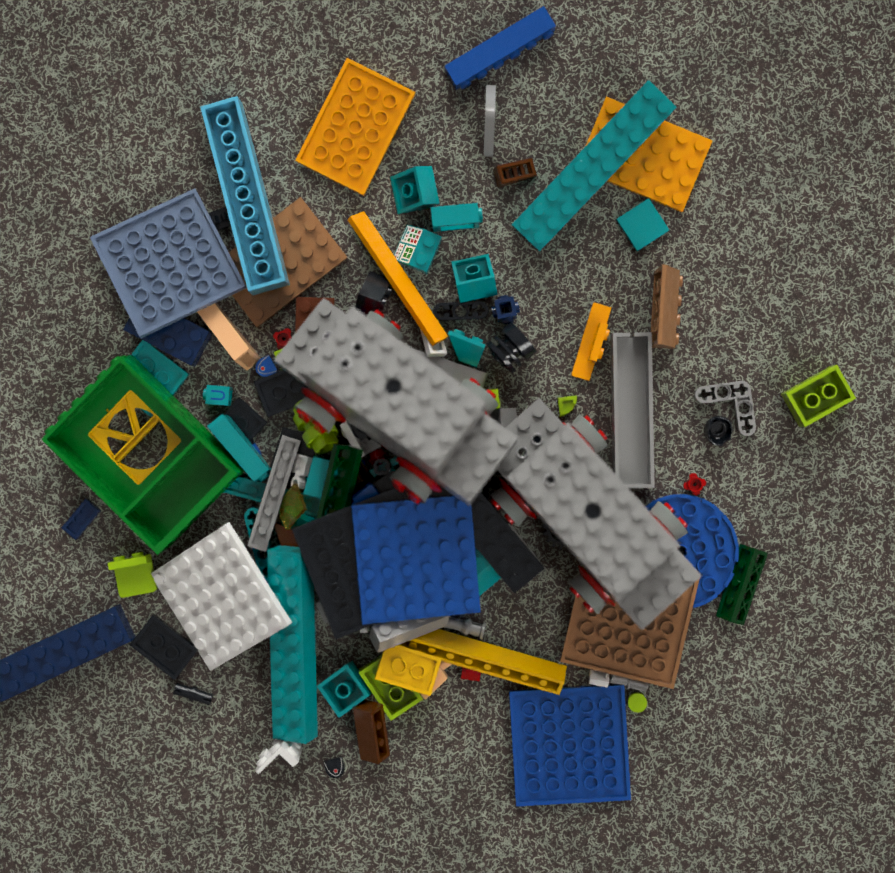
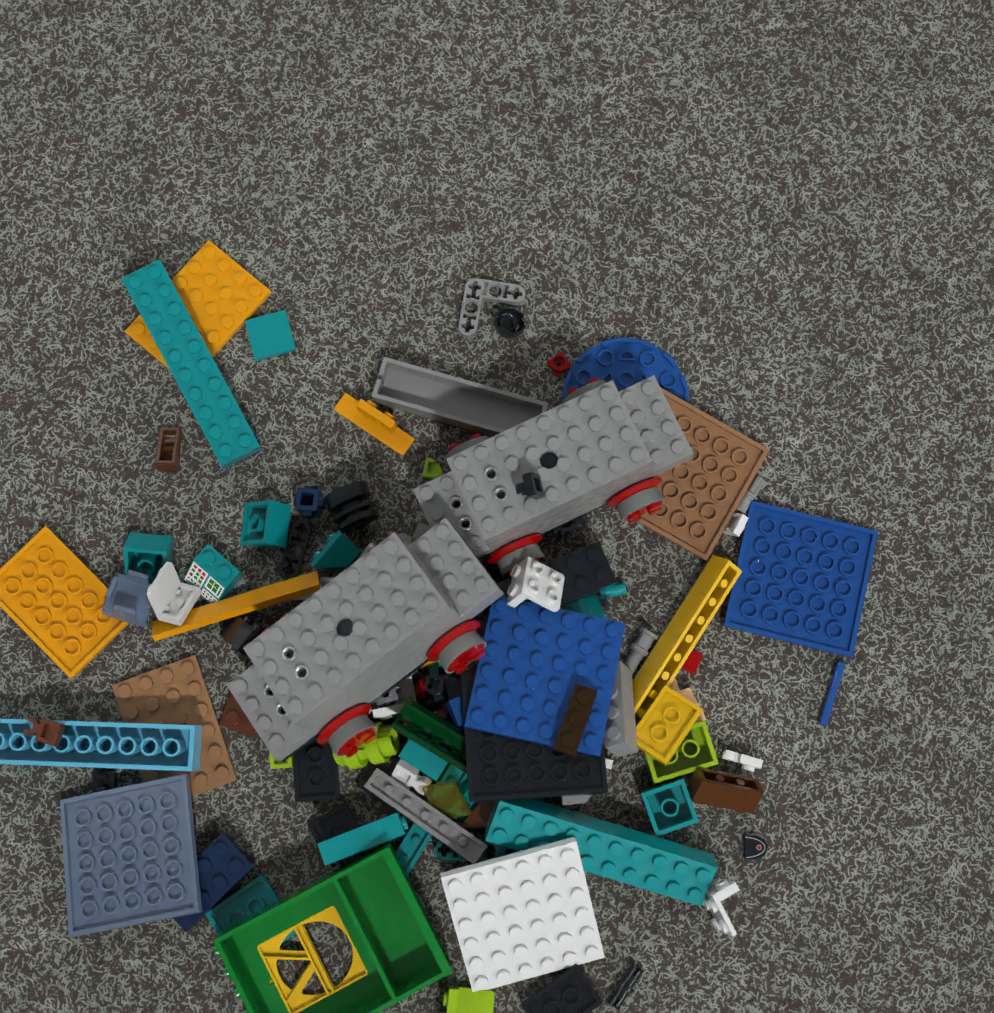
camera: 70 degrees left, 10 degrees down
(218, 395) = (296, 847): teal brick -> none
(229, 336) = (235, 812): light nougat slope -> none
(243, 160) = (46, 731): none -> copper plate
(266, 366) = (283, 783): blue tile -> none
(279, 335) = (255, 758): red plate -> none
(376, 187) = (128, 598): none -> sand blue panel
(384, 596) = (575, 720): none -> dark brown plate
(387, 222) = (170, 597): none -> white bracket
(401, 742) = (748, 763): none -> white plate
(456, 217) = (193, 522): teal window -> none
(480, 796) = (832, 691): none -> blue bar
(489, 120) = (96, 451): light grey beam -> none
(489, 528) = (537, 583): none -> white bracket
(500, 48) = (33, 423): blue brick -> none
(509, 592) = (616, 590): none -> teal pin
(563, 504) = (531, 487): none -> black tile
(637, 702) = (774, 493): lime tile -> none
(665, 307) = (361, 336): medium nougat slope -> none
(733, 594) = (689, 360): dark green fence -> none
(818, 396) = (506, 213): lime brick -> none

